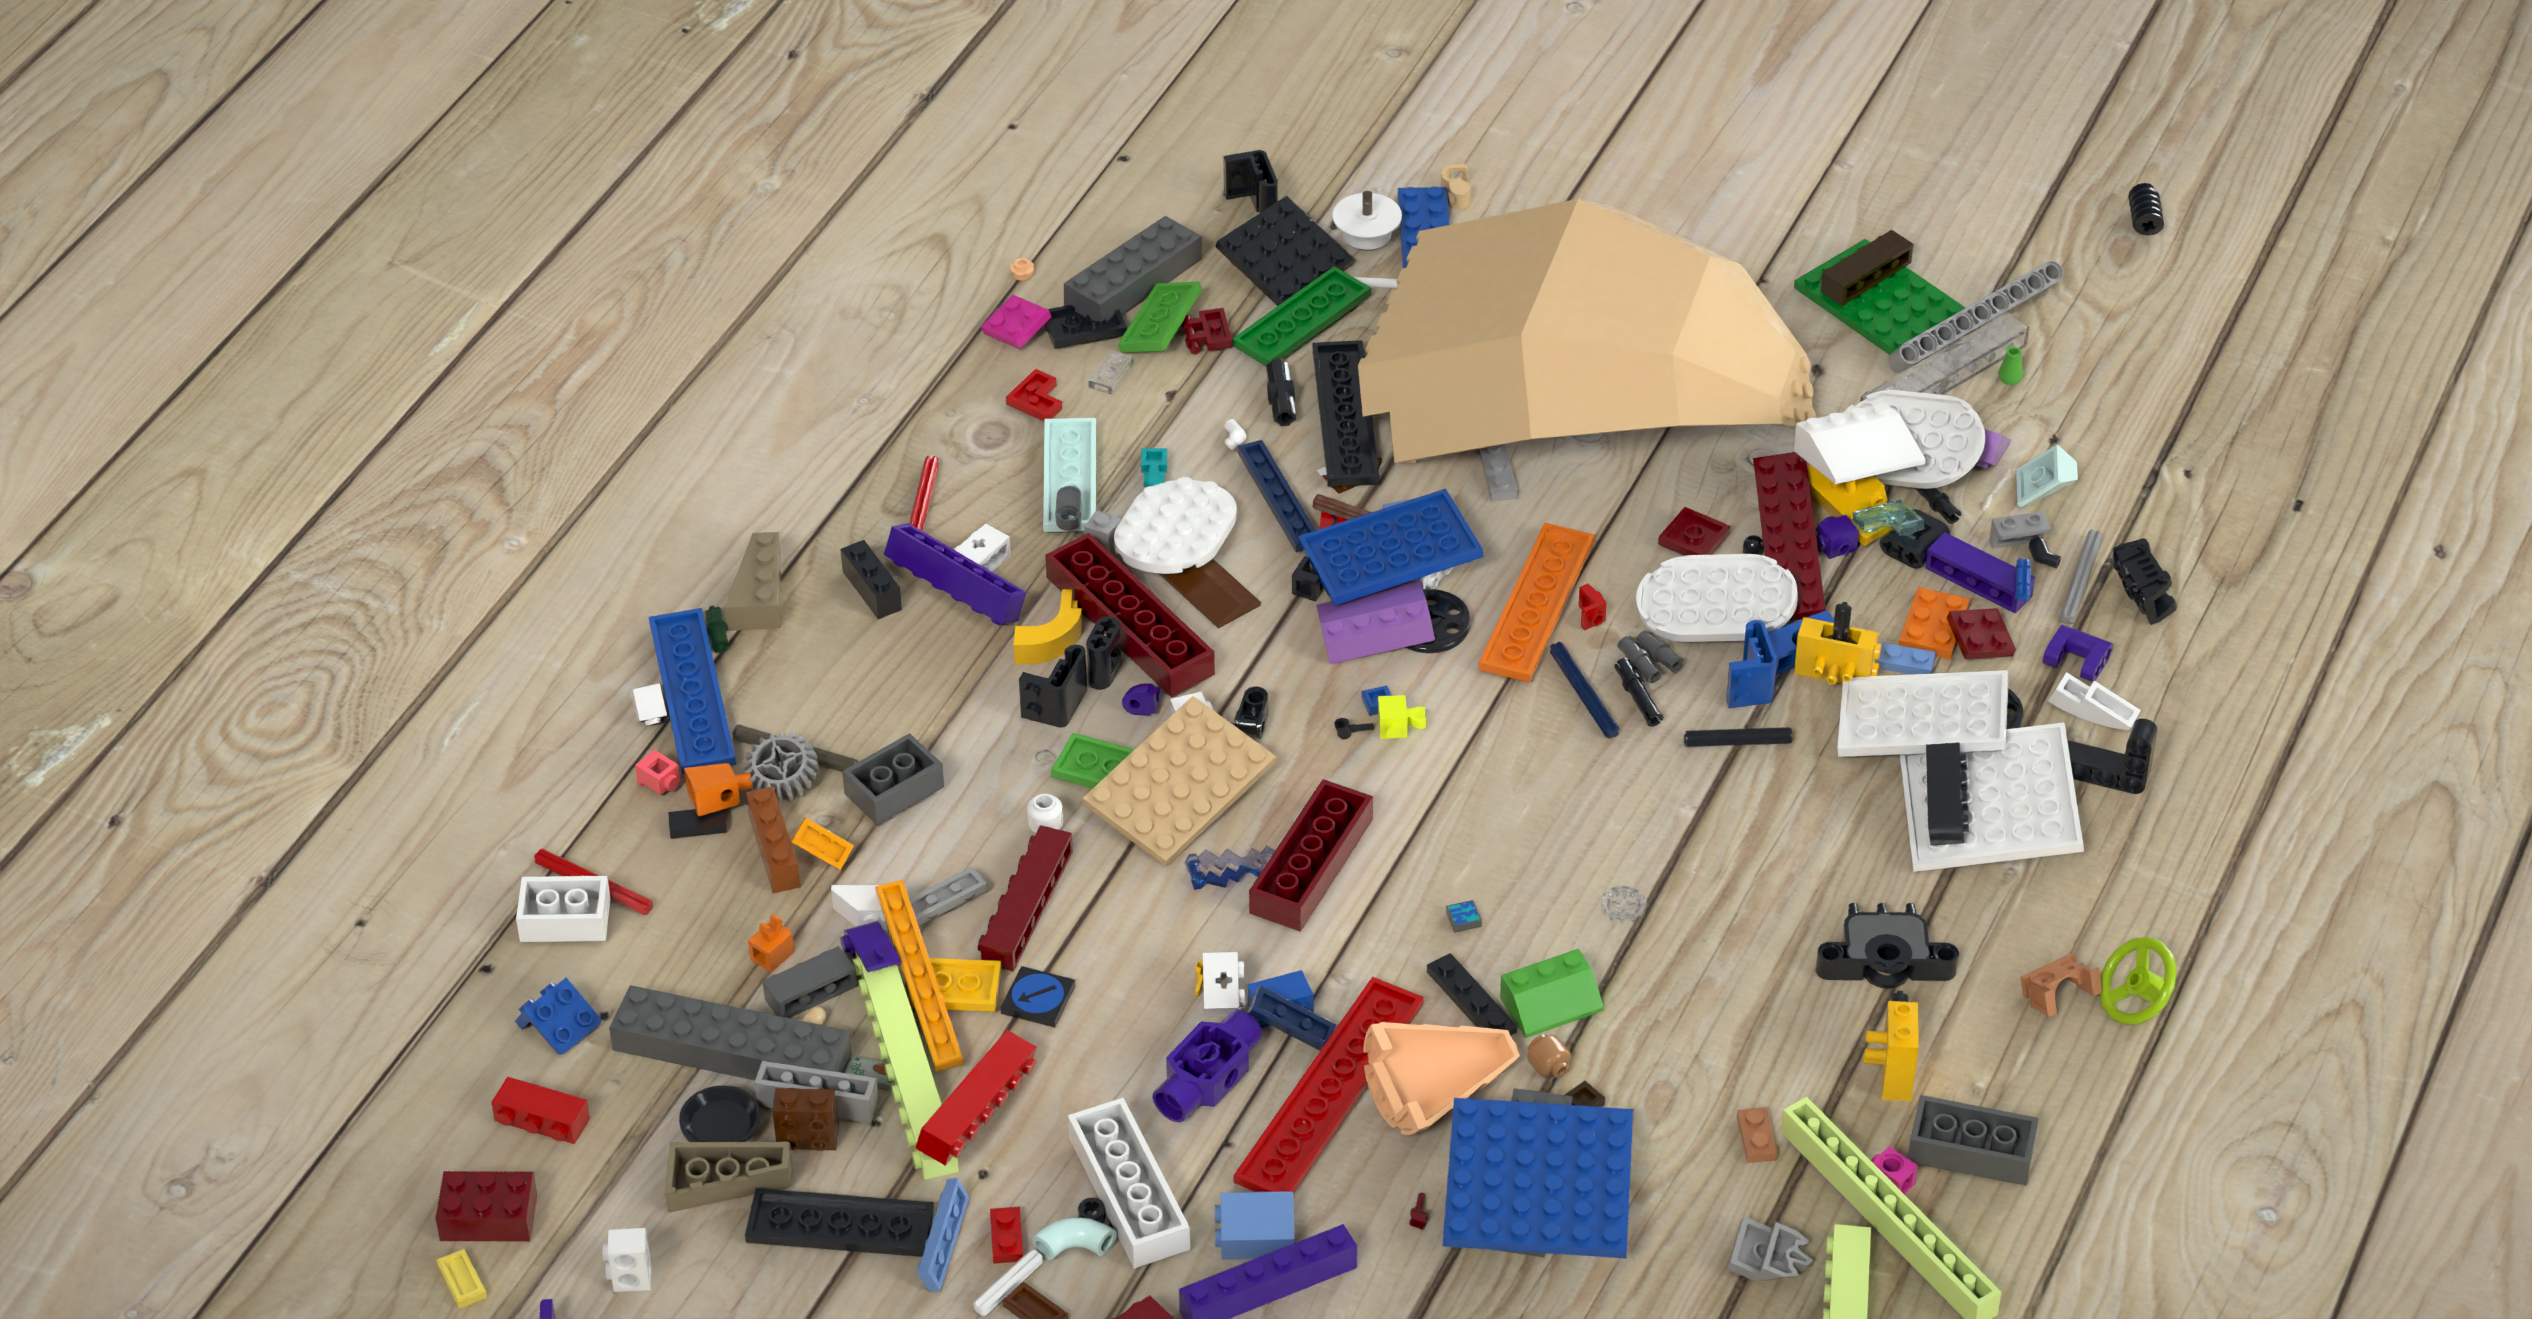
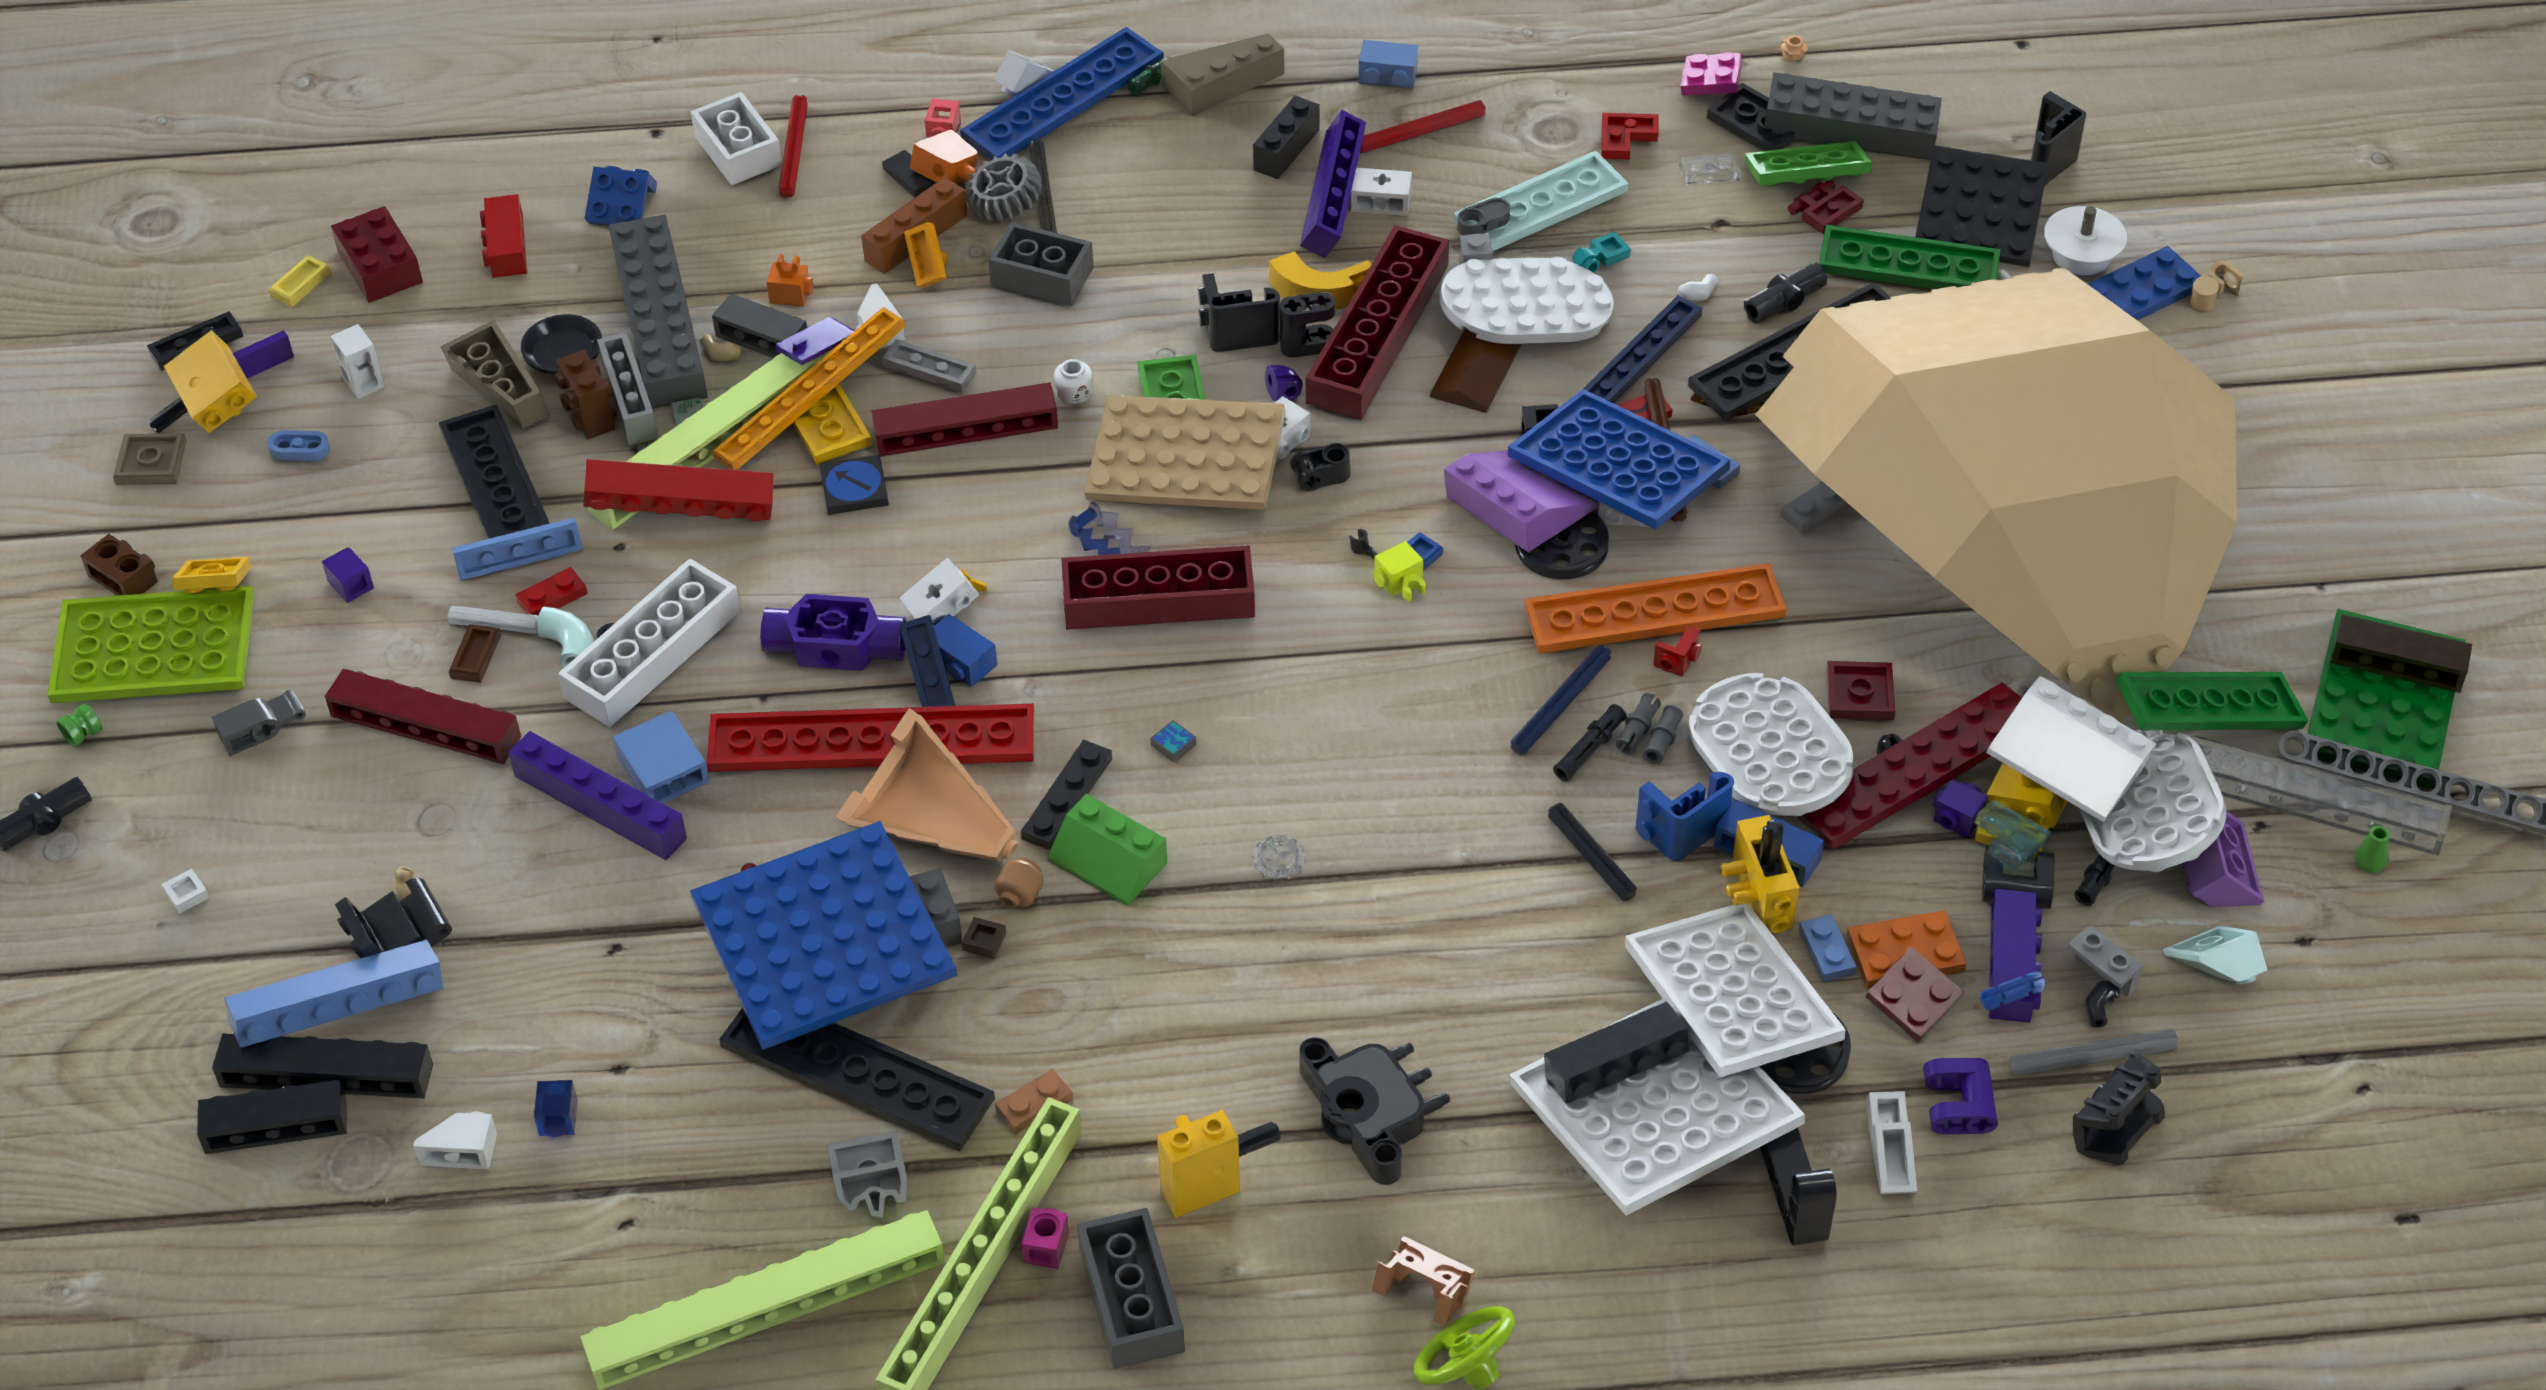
camera: 60 degrees right, 5 degrees up
(837, 487) = (1388, 63): none -> medium blue brick
(1671, 1220) = (872, 1078): none -> black plate
(1844, 371) = (2211, 700): none -> green plate

